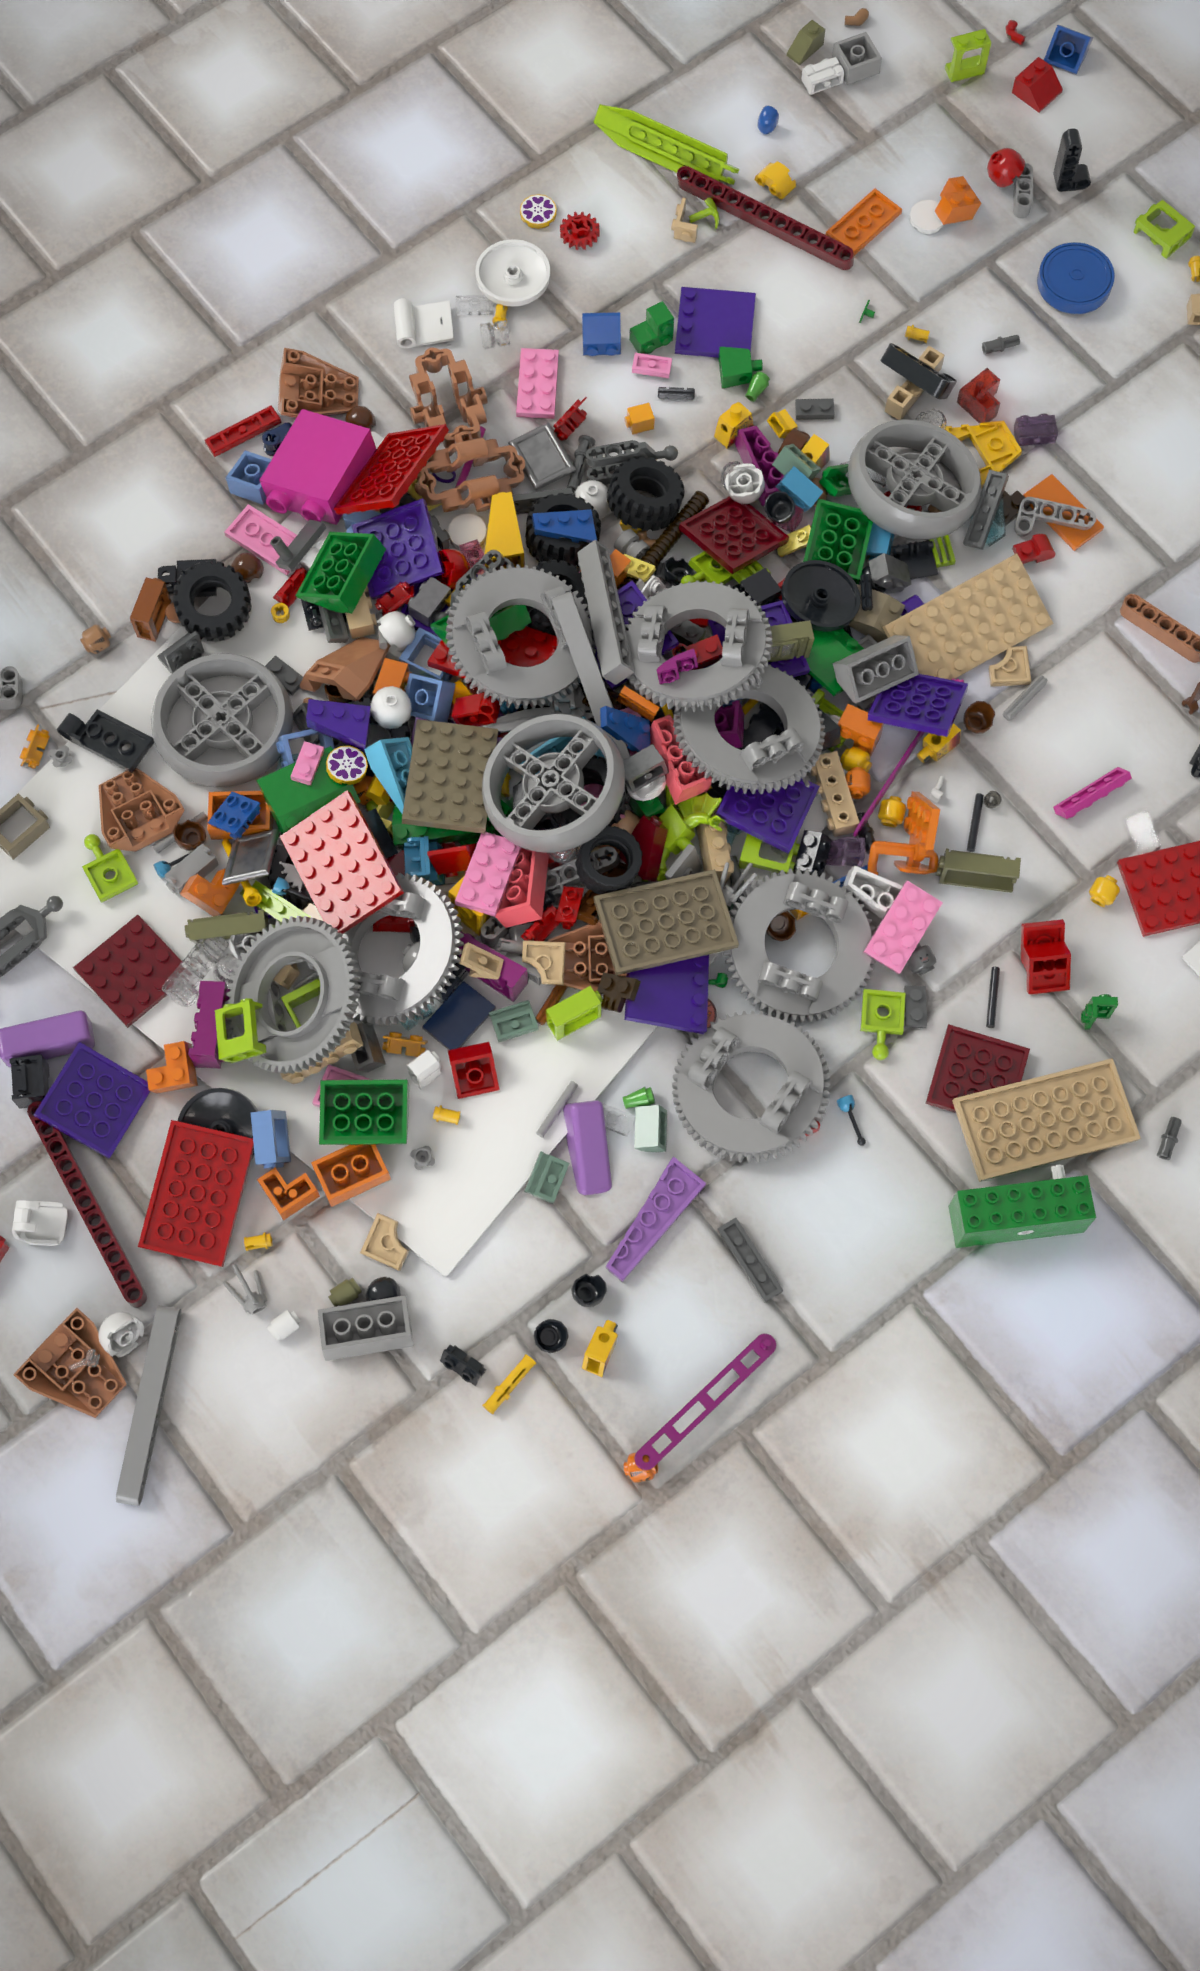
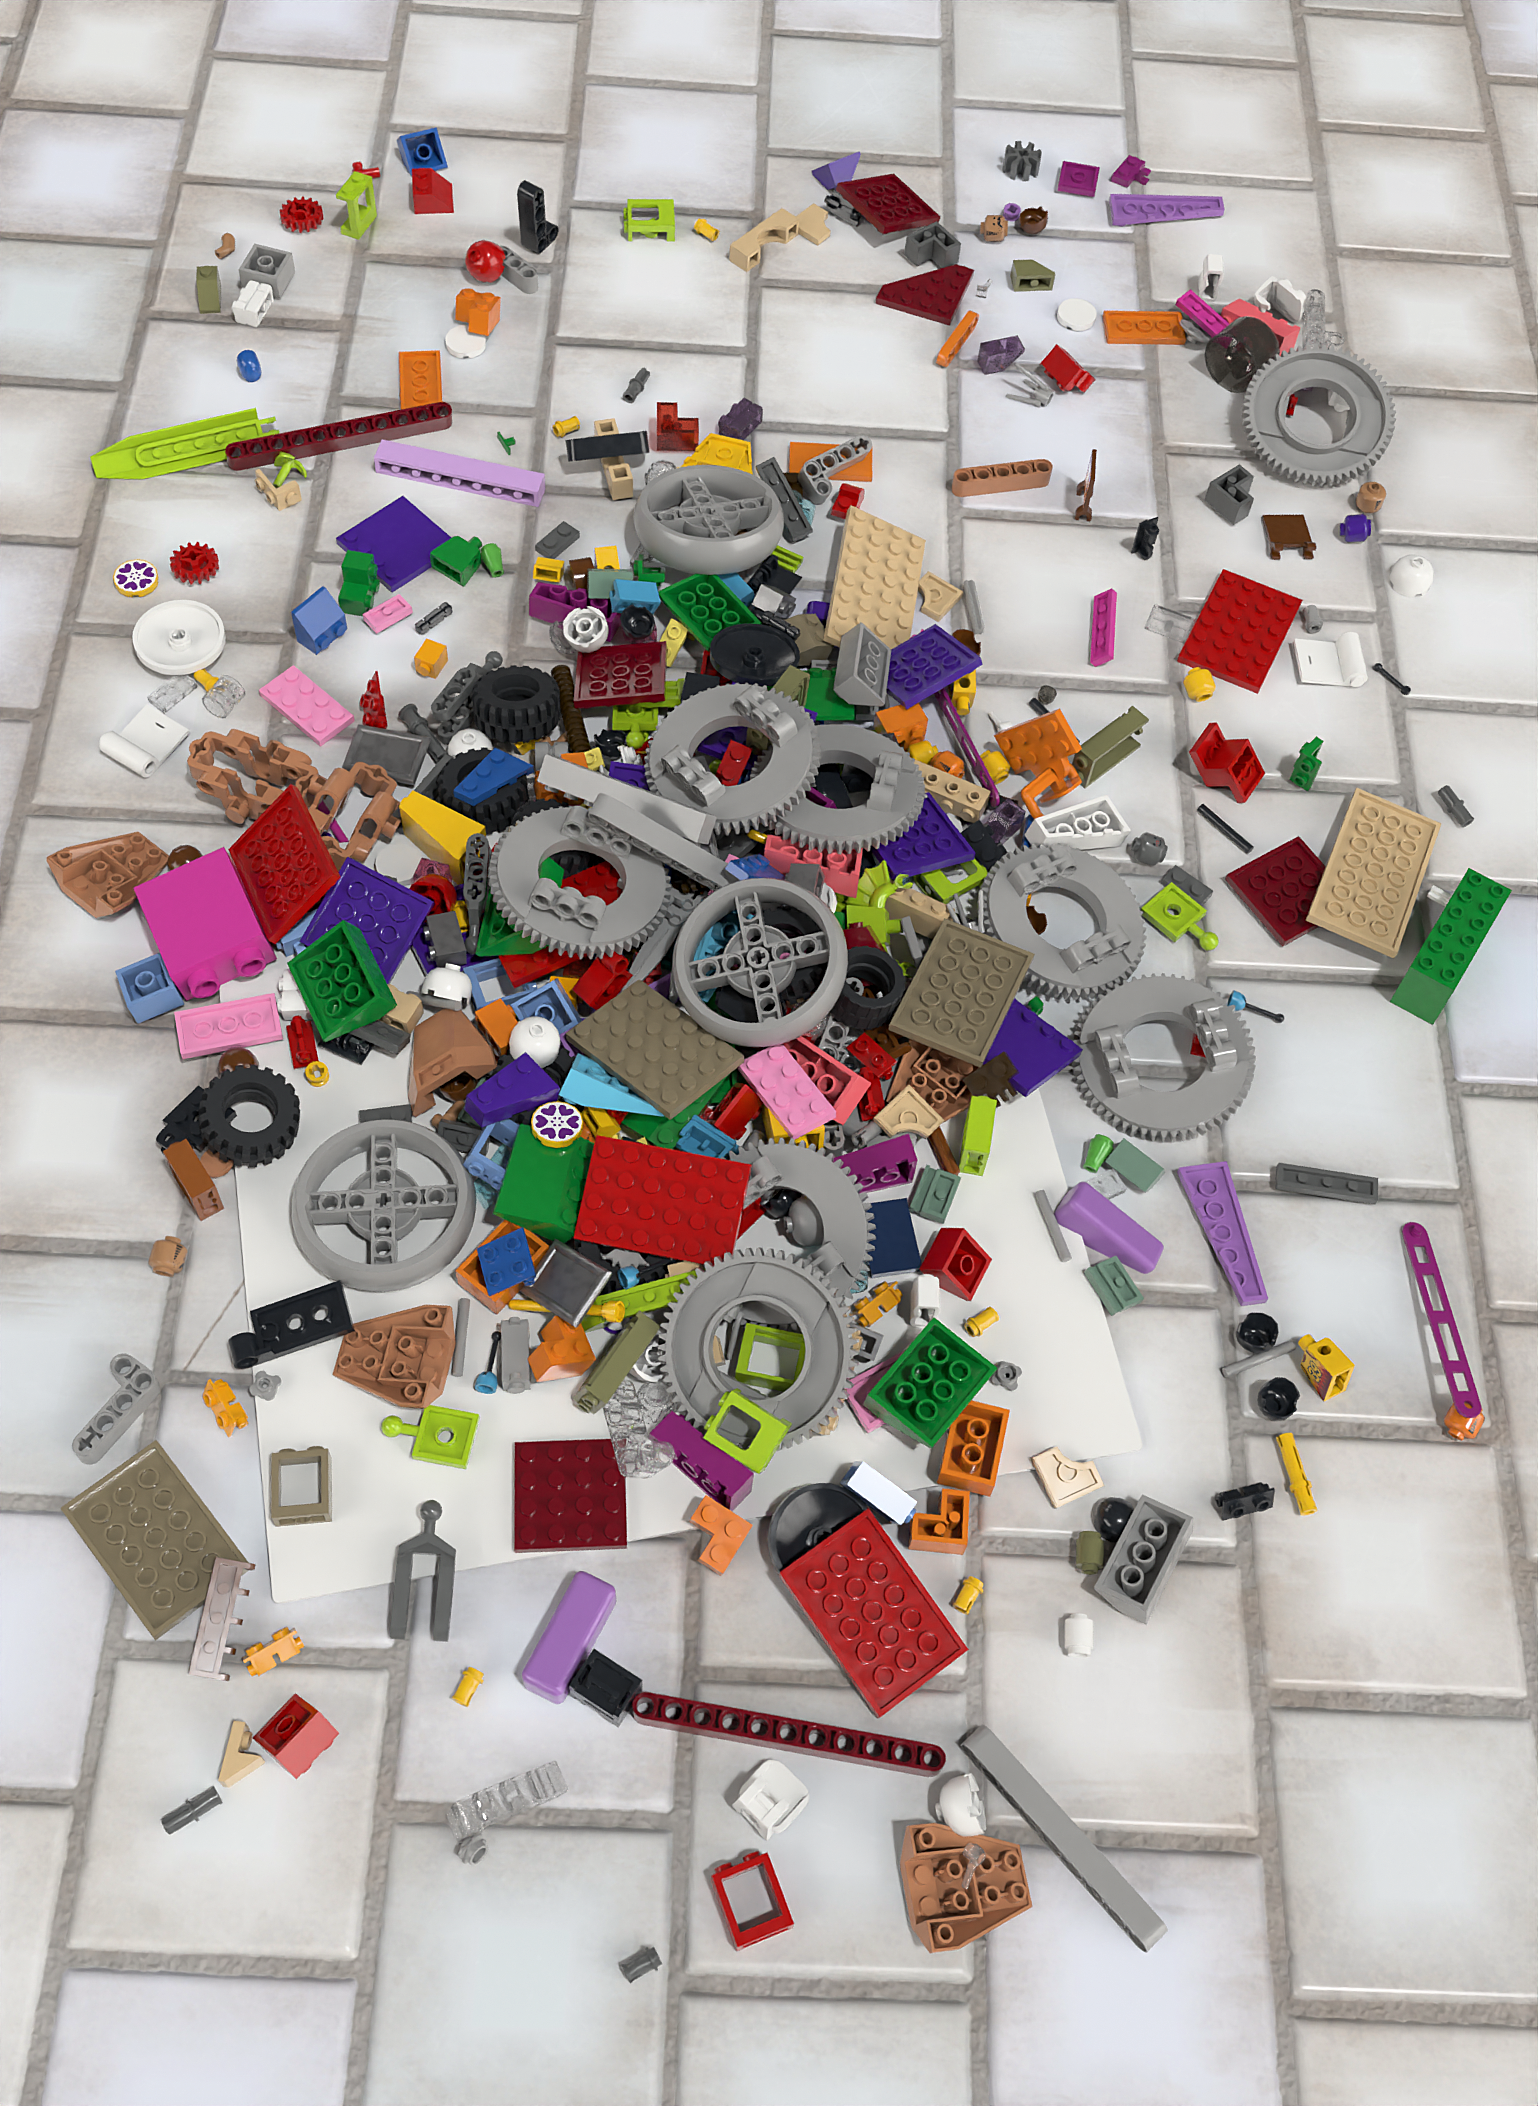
camera: 55 degrees left, 10 degrees down
(93, 1100) = (683, 1638): dark purple plate -> none
(182, 652) = (268, 1189): dark grey bracket -> none
(189, 835) = (479, 1327): reddish brown hair -> none
(242, 431) = (85, 963): red plate -> none
(254, 1301) = (1029, 1645): light grey plant -> none
(276, 437) = (131, 939): dark blue piece -> none
(293, 554) = (271, 1001): dark grey piece -> none
(307, 763) = (522, 1155): bright pink plate -> none
(402, 595) = (416, 955): red hinge -> none
(481, 963) = (870, 1165): tan slope -> none
(575, 1306) = (1258, 1359): none -> light grey bar
(638, 703) = (738, 845): orange plate -> none
(670, 669) = (750, 782): magenta slope -> none
(730, 422) = (514, 591): yellow torso -> none
(777, 179) = (310, 401): yellow cylinder -> none
(808, 308) = (460, 473): none -> lavender brick
(902, 927) = (1117, 833): bright pink plate -> none
(931, 33) = (301, 214): none -> red gear
(1075, 278) = (632, 298): blue brick -> none

